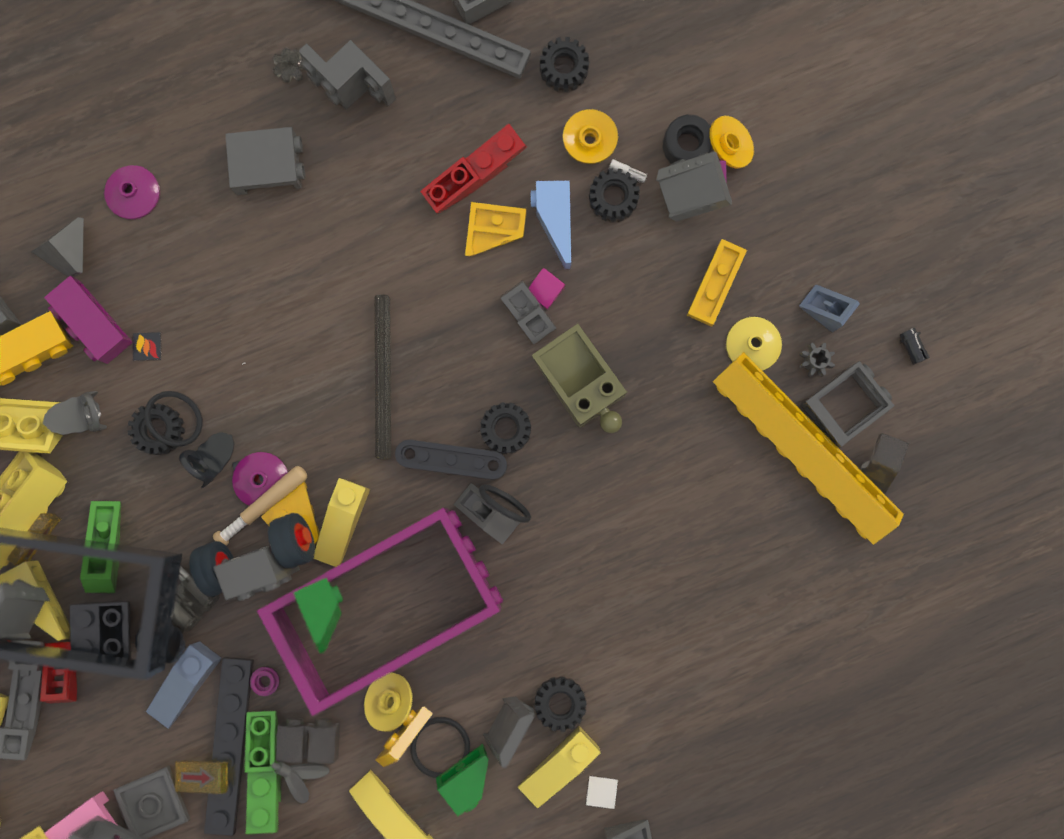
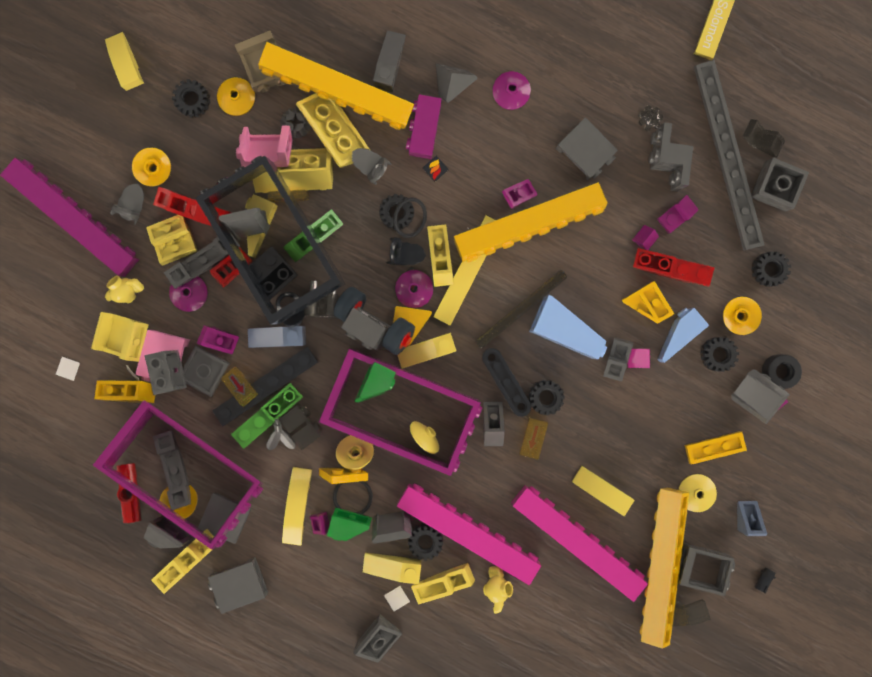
camera: 50 degrees right, 5 degrees up
(60, 745) = (195, 299): none -> magenta dish
(126, 757) = (217, 339): none -> magenta slope
(246, 420) = (440, 255): none -> light yellow slope
(249, 275) = (519, 193): none -> magenta slope
(258, 687) = (308, 382): magenta plate -> none
(272, 496) = (415, 304): tan piece -> none
(290, 401) = (461, 284): none -> light yellow tile
(291, 288) = (530, 222): none -> yellow brick
(417, 173) = (645, 237): none -> magenta slope
(420, 118) = (678, 214): none -> magenta slope
(435, 604) = (424, 437): none -> light yellow dish
(439, 812) = (320, 523): none -> magenta slope
(444, 342) = (566, 329): none -> light blue slope
(482, 491) = (507, 445): black tyre -> none
(542, 480) = (533, 438): none -> clear yellow tile
(578, 374) = (608, 414): olive slope -> none
(591, 644) = (469, 534): none -> dark pink brick
(626, 722) = (443, 584): none -> light yellow slope
(639, 176) = (741, 357): white pin -> none
(664, 448) = (603, 491): none -> light yellow slope
(681, 662) = (497, 588): none -> light yellow piece
(703, 524) = (579, 543): none -> dark pink brick
(731, 142) = (800, 395): yellow dish -> none
(824, 357) = (720, 537): dark grey gear -> none

